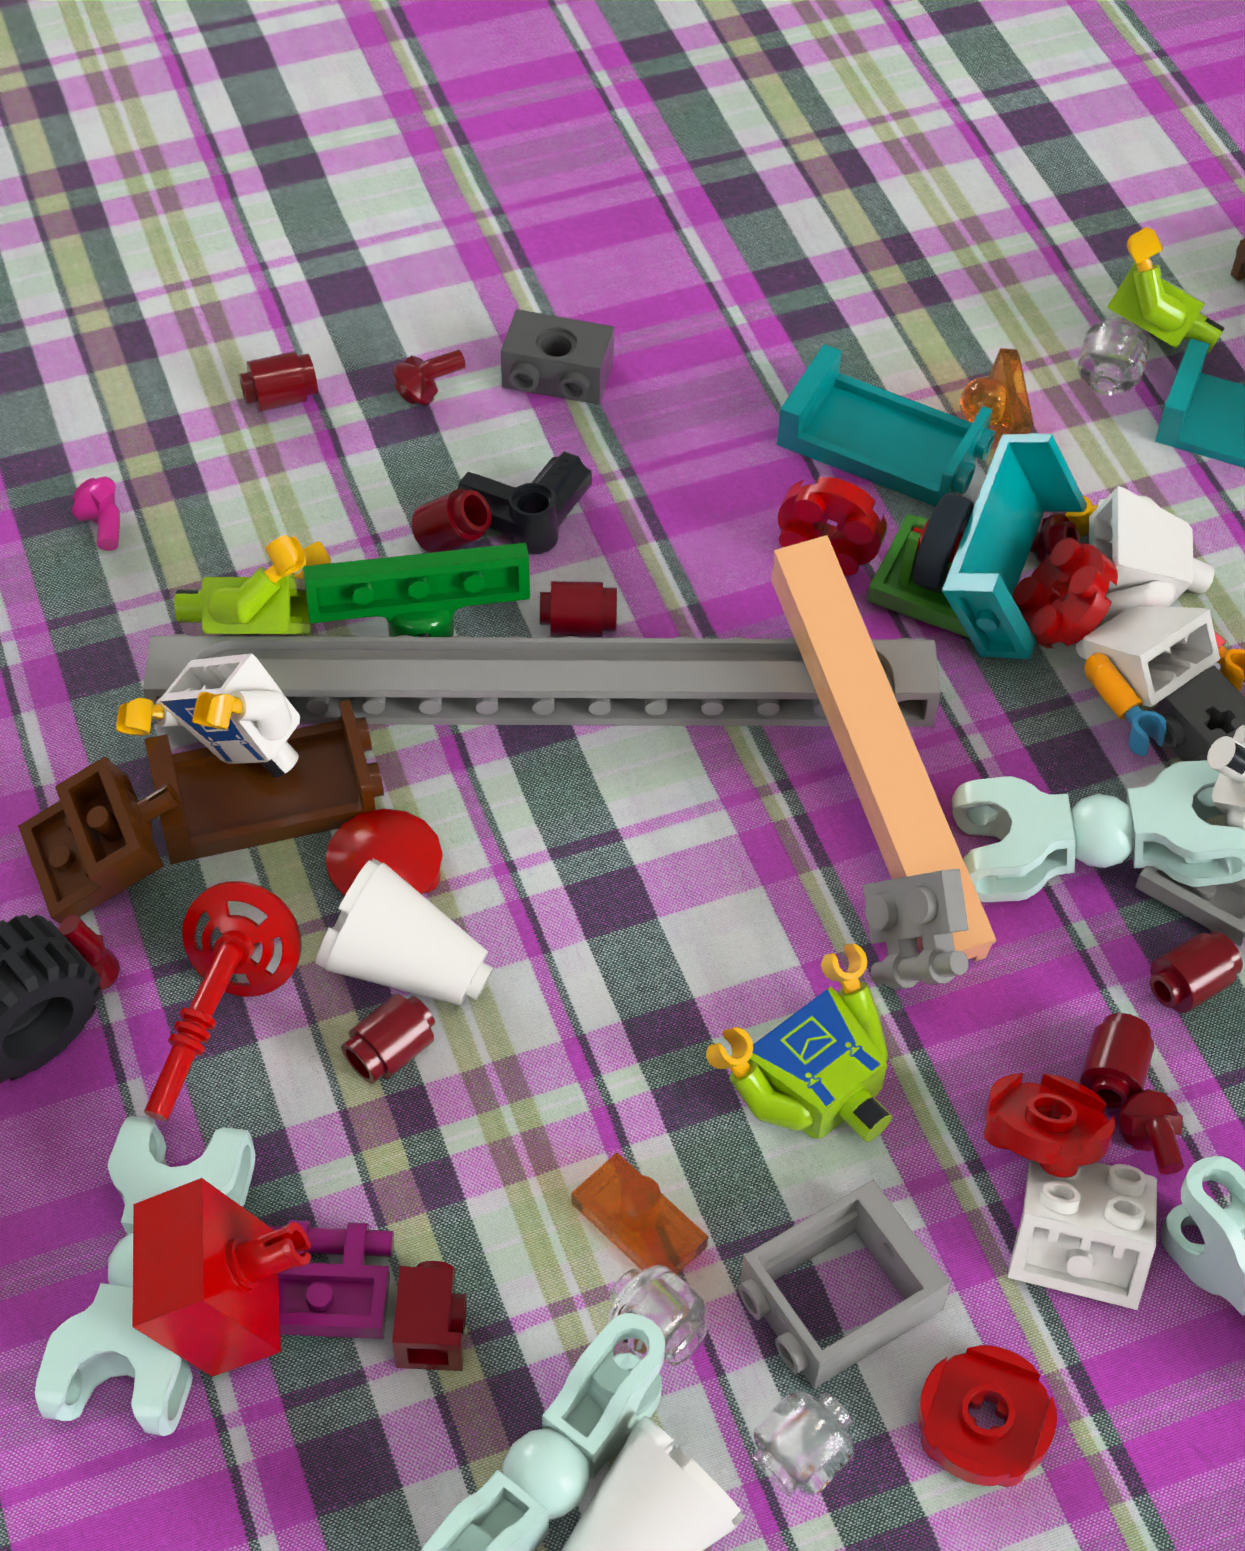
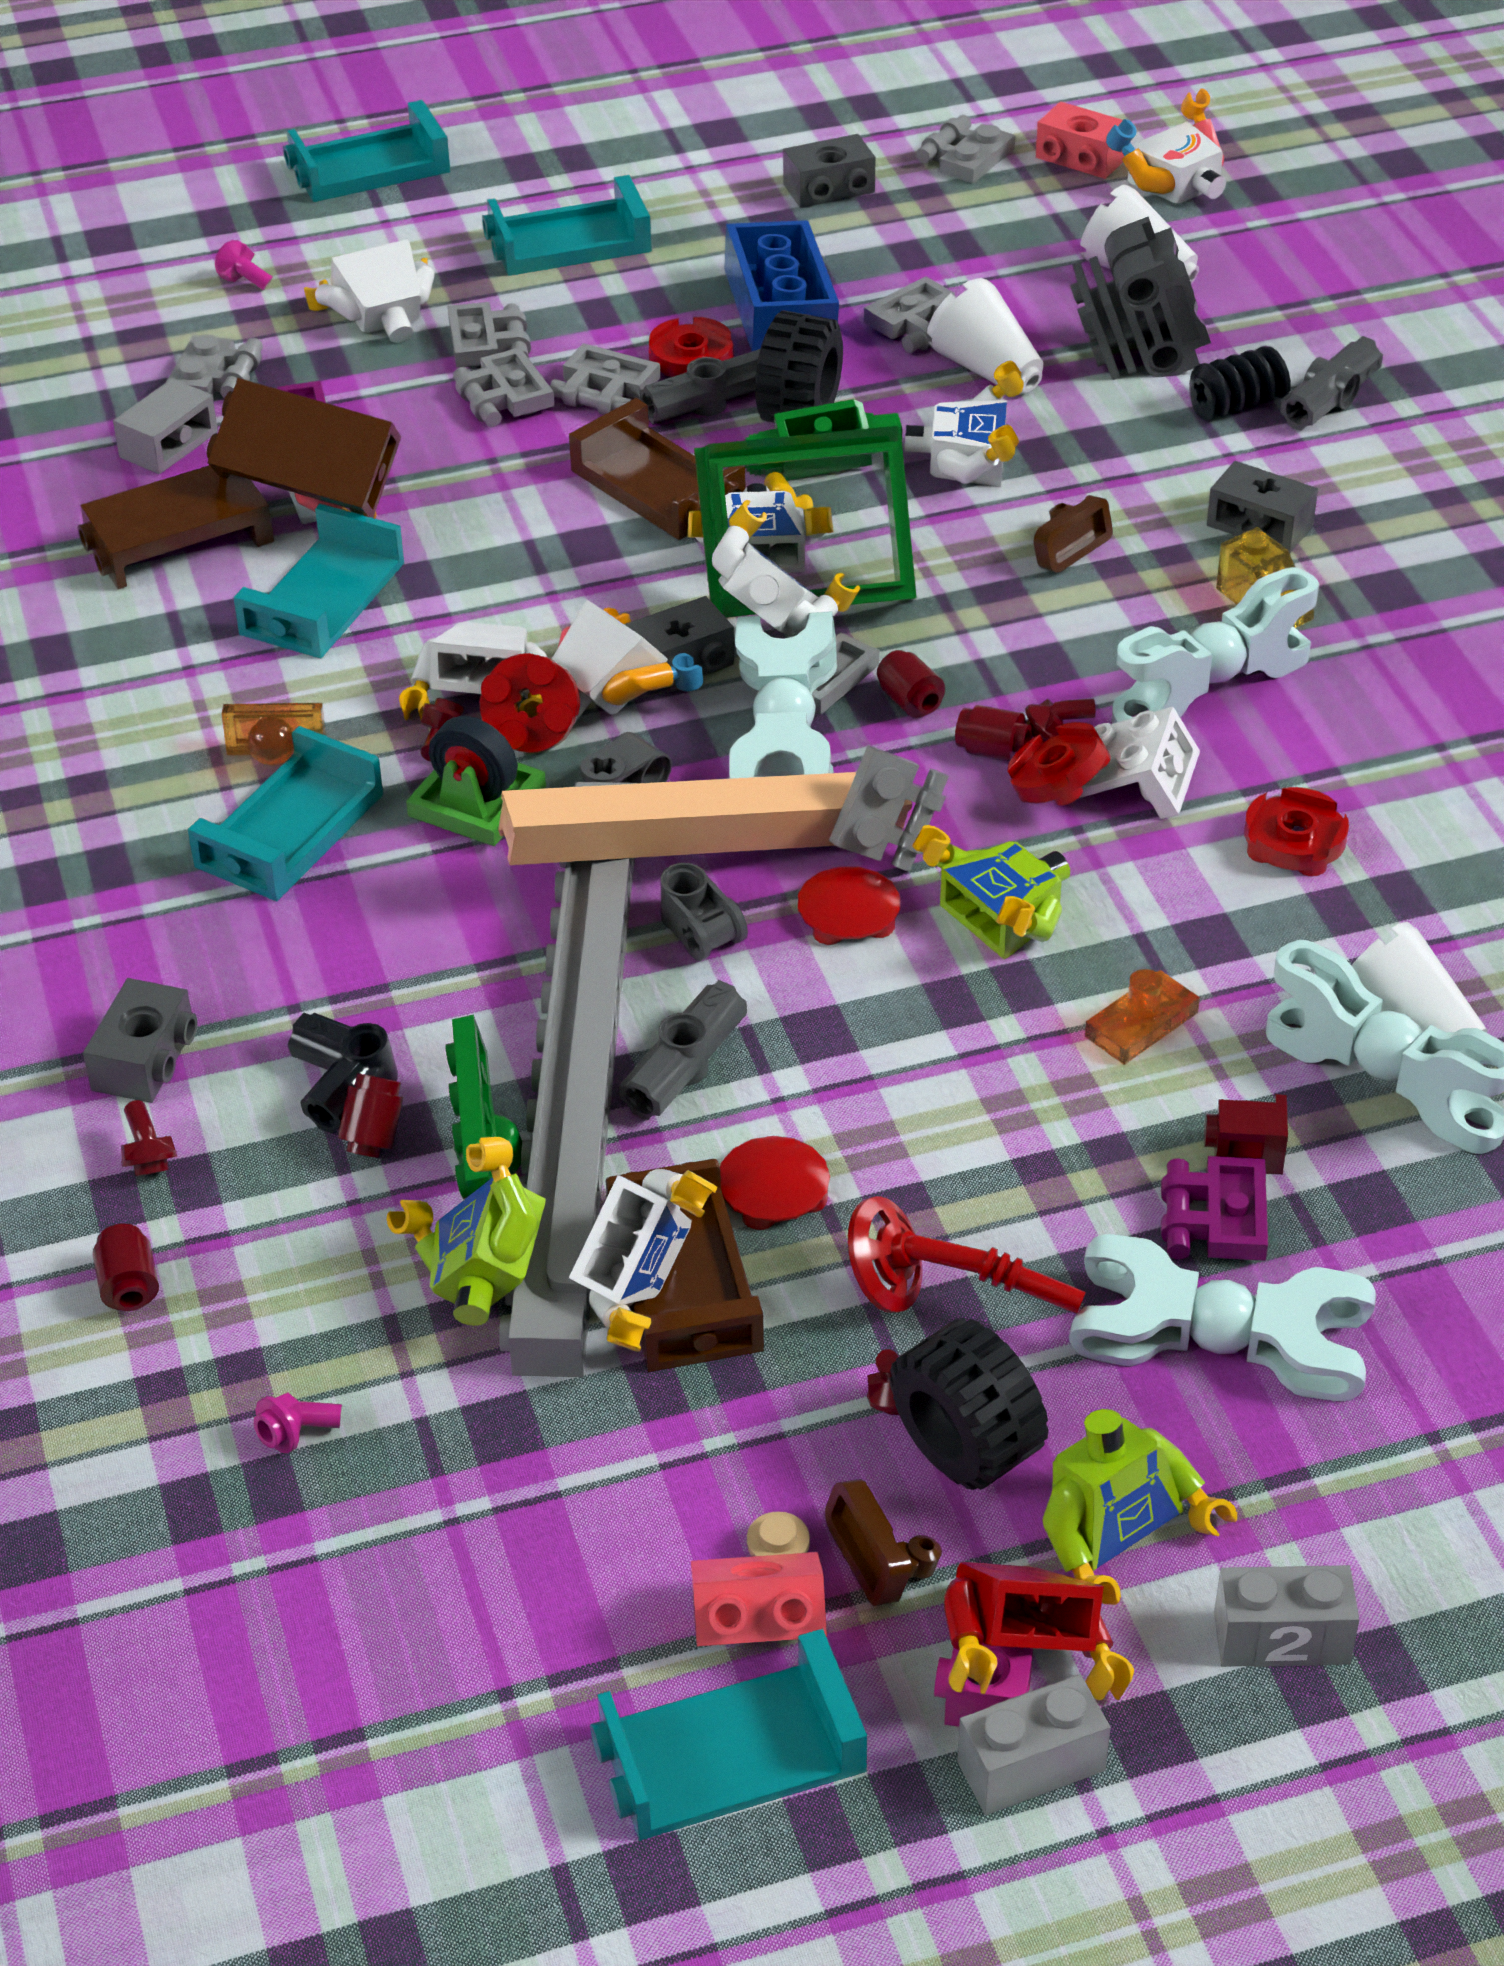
camera: 85 degrees left, 10 degrees down
(94, 839) = (763, 1378): reddish brown plate -> none
(210, 1276) = (1254, 1228): red brick -> none
(389, 1038) = (980, 1163): dark red brick -> none
(402, 941) = (878, 1149): white cone -> none
(578, 780) = (683, 1050): none -> dark grey piece
(579, 608) = (498, 1024): dark red brick -> none
(667, 1302) = (1238, 993): clear head -> none
(757, 777) = (699, 910): none -> dark grey piece
(803, 917) = (849, 904): none -> red dish
(804, 1442) = (1335, 917): clear head -> none
(858, 530) = (430, 838): red plate -> none
(890, 1243) = (1199, 850): light grey window -> none
(988, 698) = (627, 761): none -> dark grey piece
(1020, 485) = (549, 749): teal panel -> none
(1113, 354) = (230, 656): clear head -> none
(1156, 302) = (173, 617): lime torso -> none

